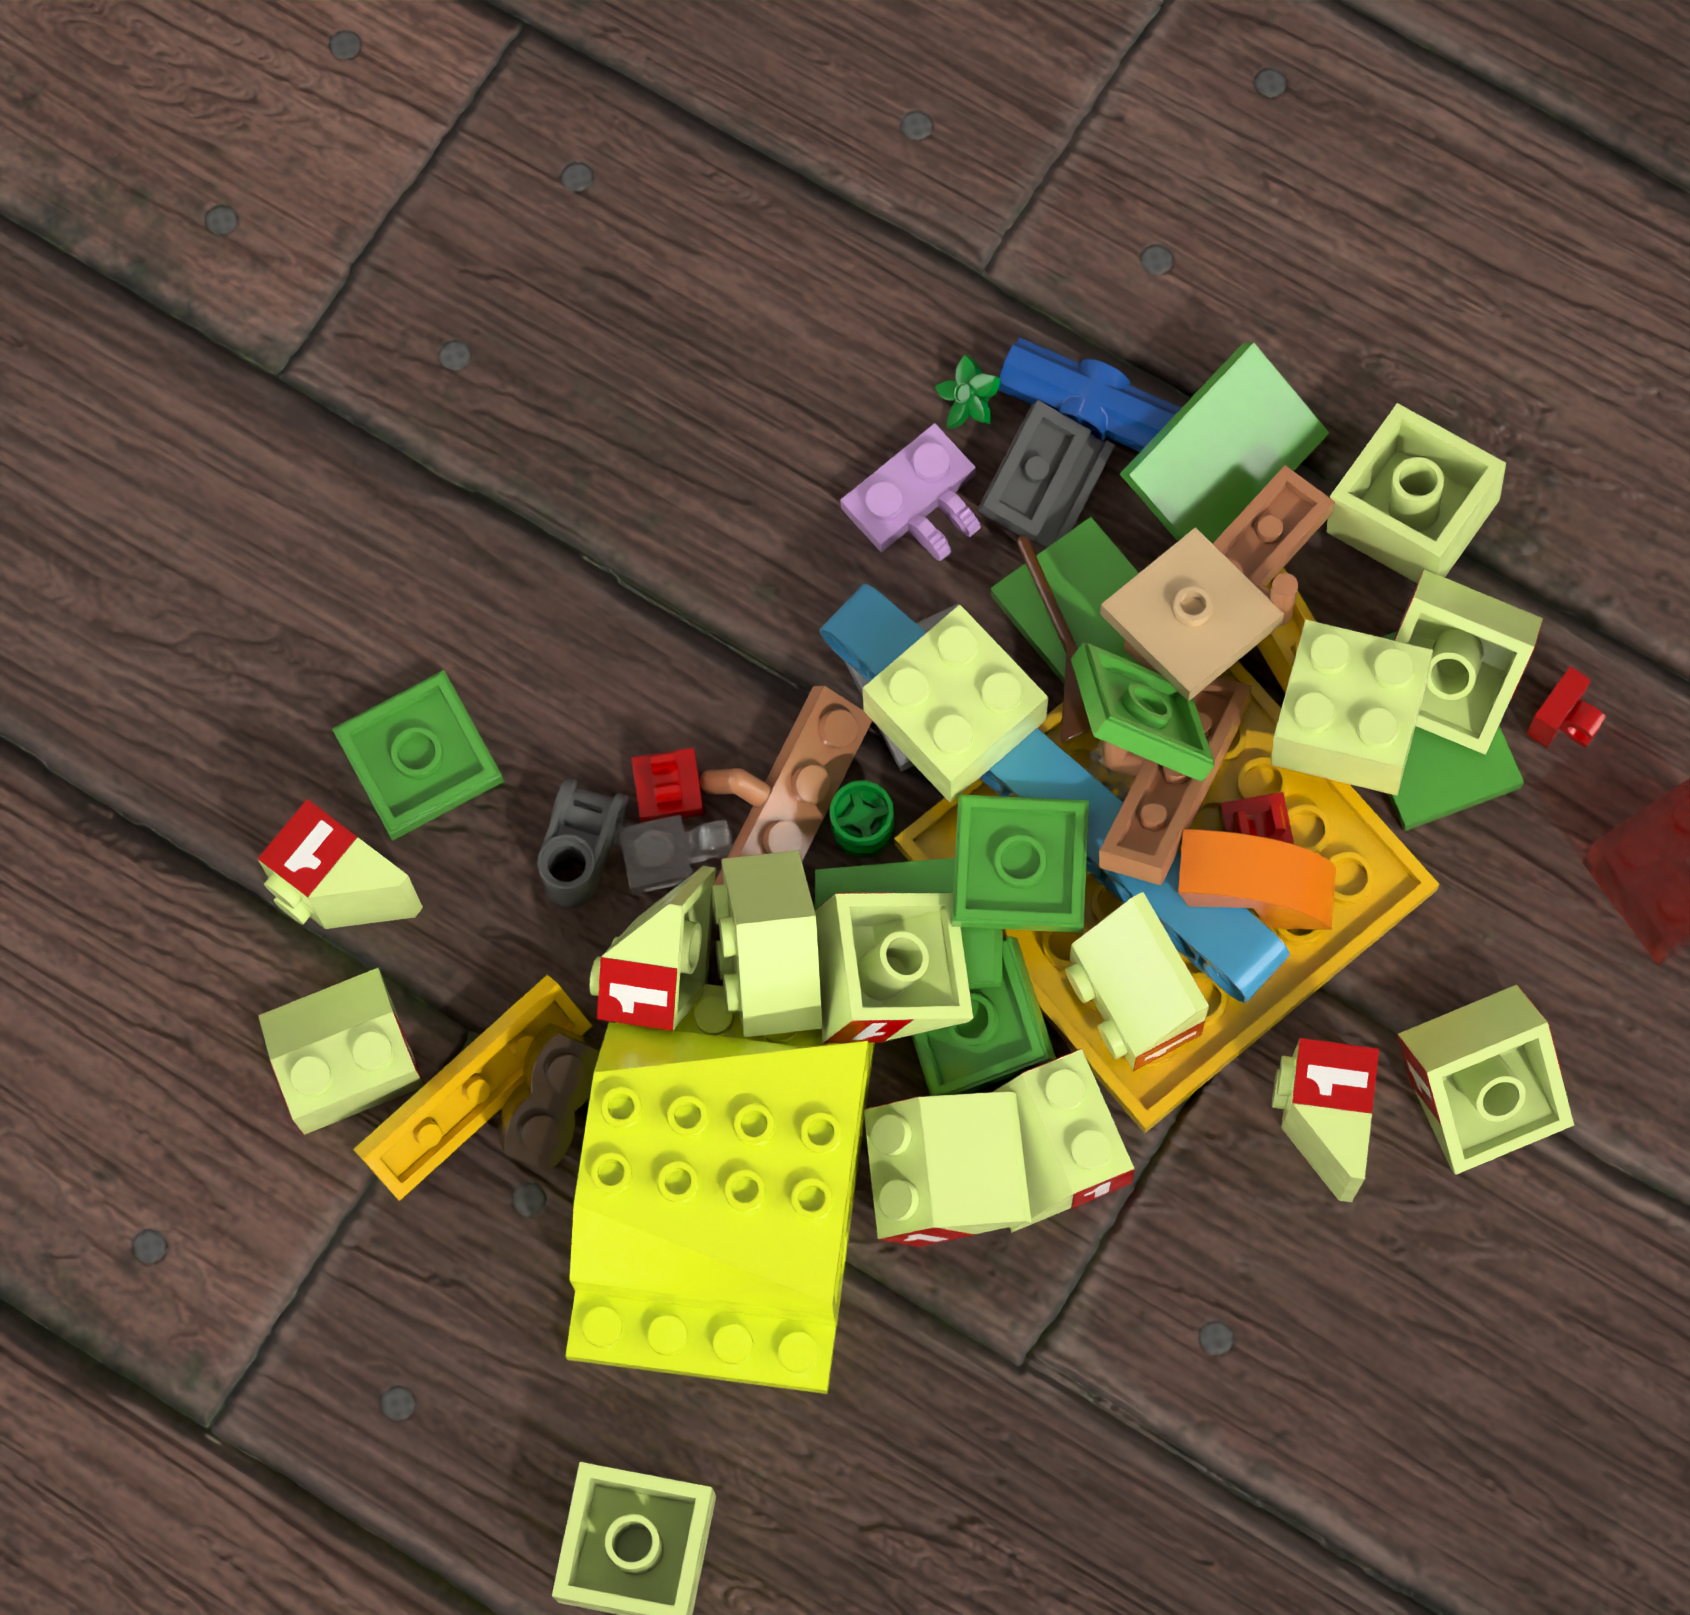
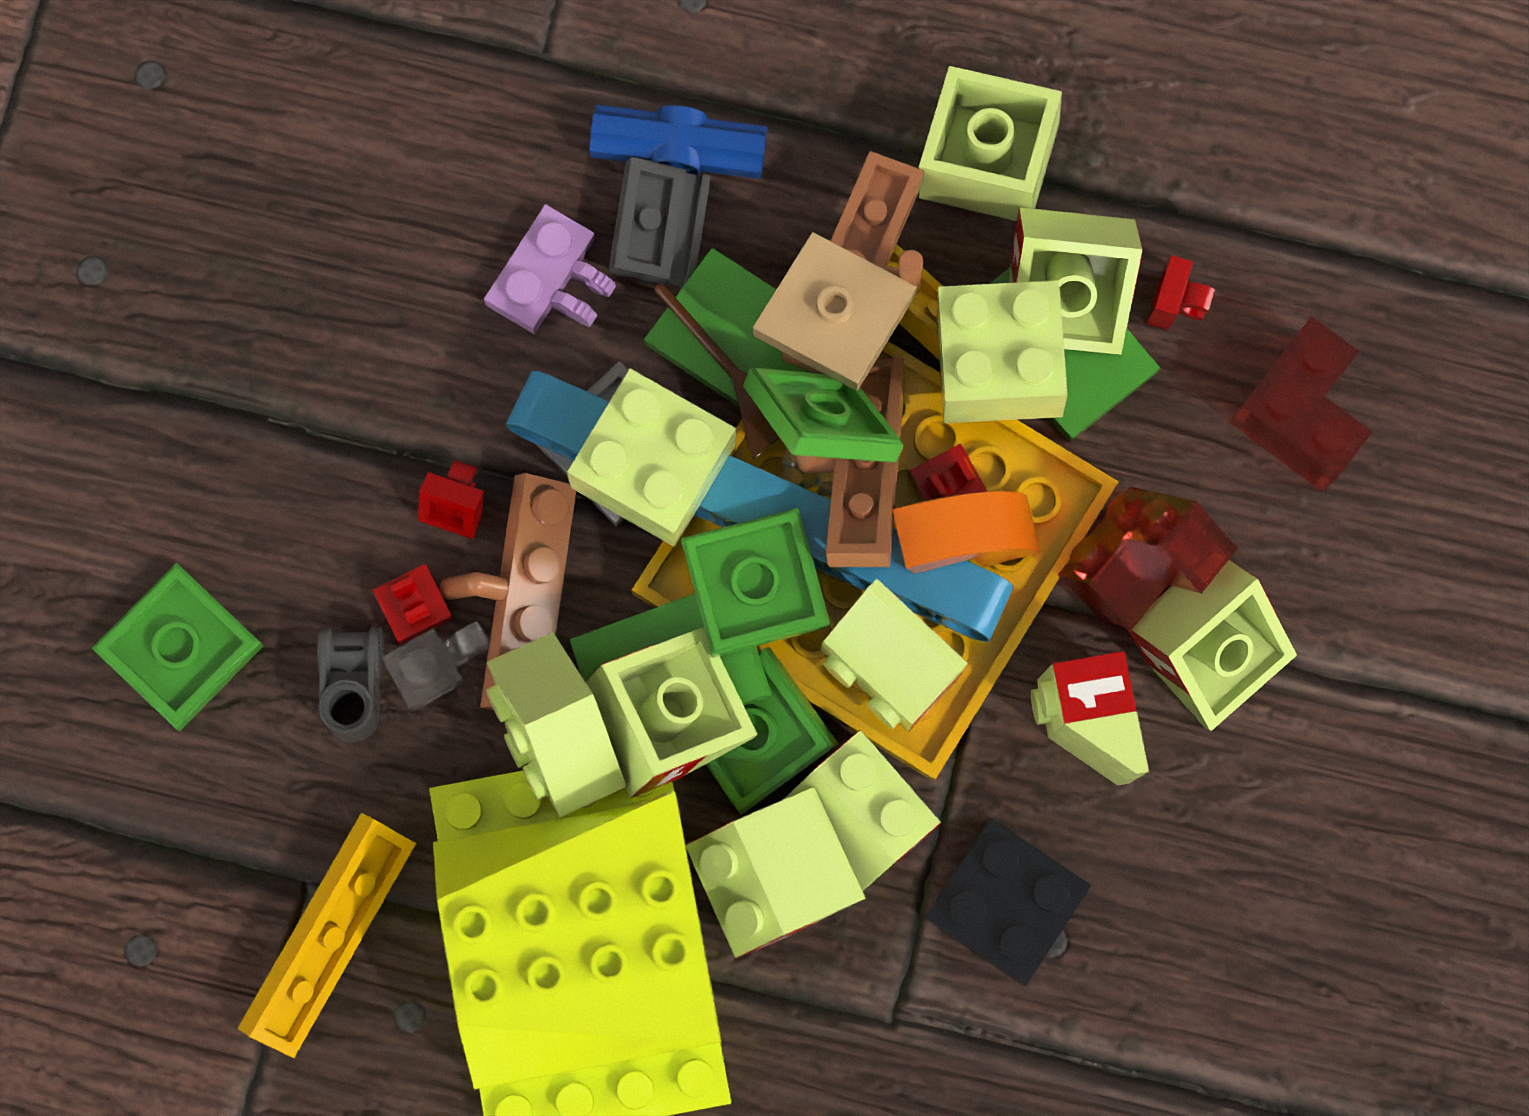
camera: 30 degrees left, 5 degrees up
(333, 875) = (135, 786): yellowish green slope -> none
(339, 1052) = (194, 940): yellowish green slope -> none
(539, 1113) = (396, 939): dark brown brick -> none
(660, 960) = (459, 770): yellowish green slope -> none
(741, 693) = (452, 501): none -> red tile
(859, 806) = (593, 572): green wheel -> none
(969, 393) = (567, 168): green plant -> none
(1181, 1281) = (1007, 902): none -> black plate
(1224, 446) = (809, 151): tile -> none
(1437, 960) = (1140, 550): none -> clear red brick

